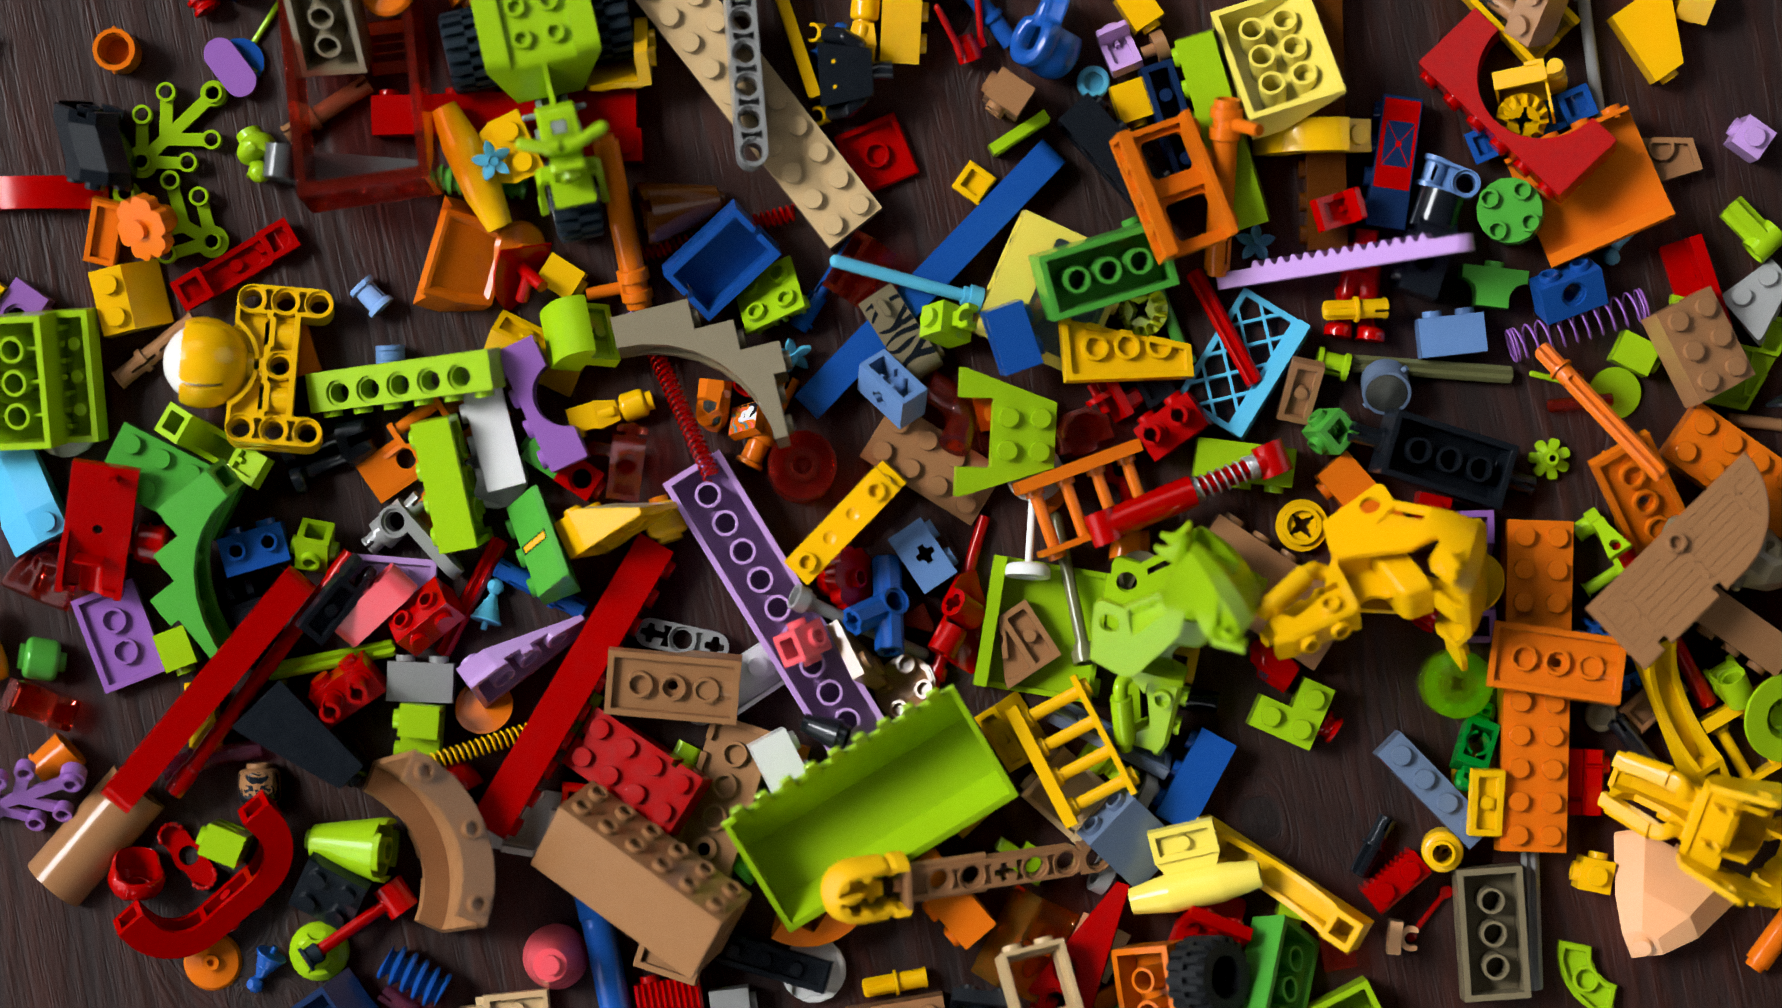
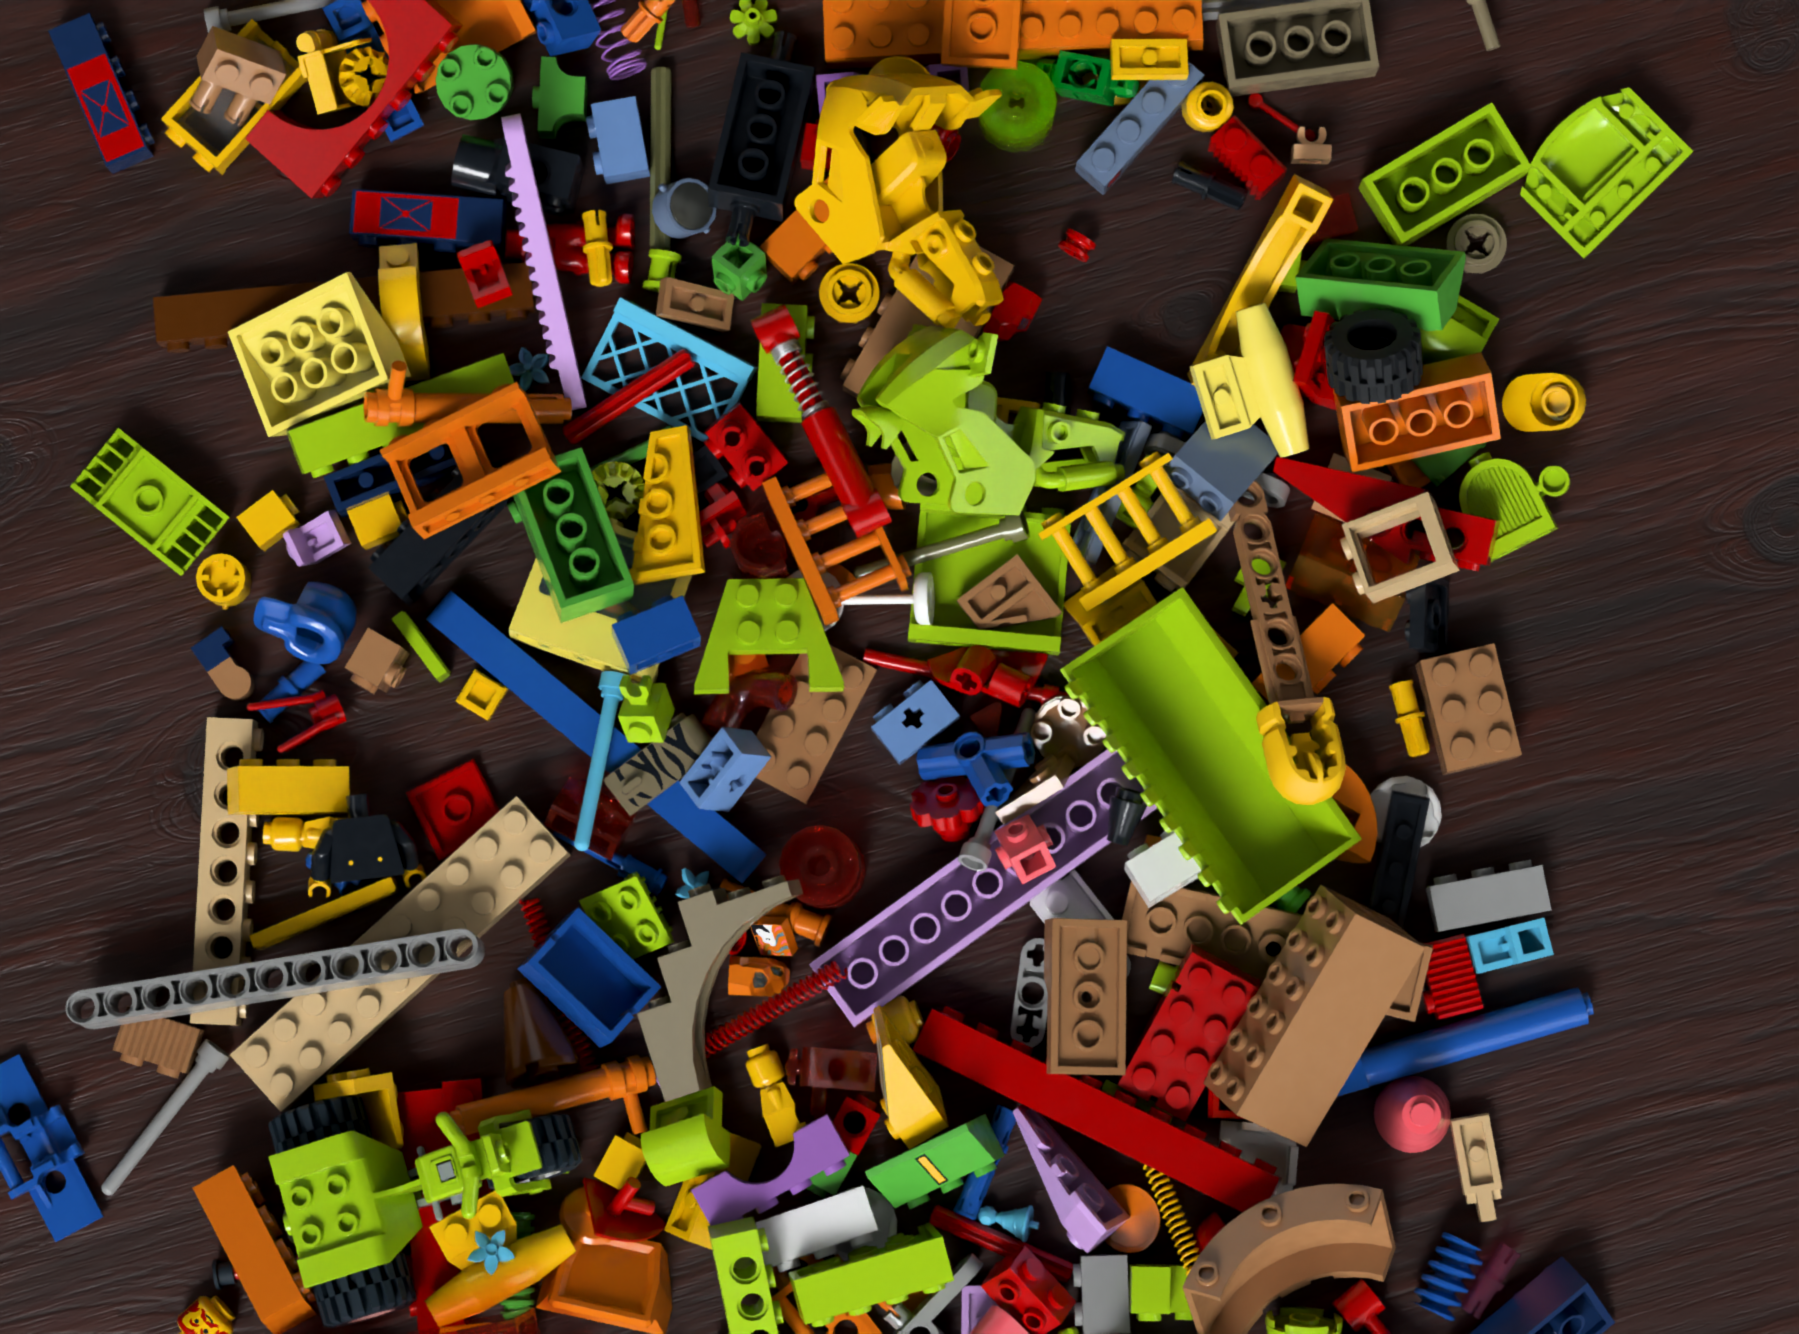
camera: 90 degrees left, 5 degrees down
(845, 521) = (882, 811): yellow fence -> none
(1093, 81) = (354, 567): medium azure tile -> none
(1158, 47) = (312, 495): medium nougat tile -> none
(1294, 722) = (1072, 280): lime brick -> none
(1446, 176) = (438, 157): medium blue piece -> none

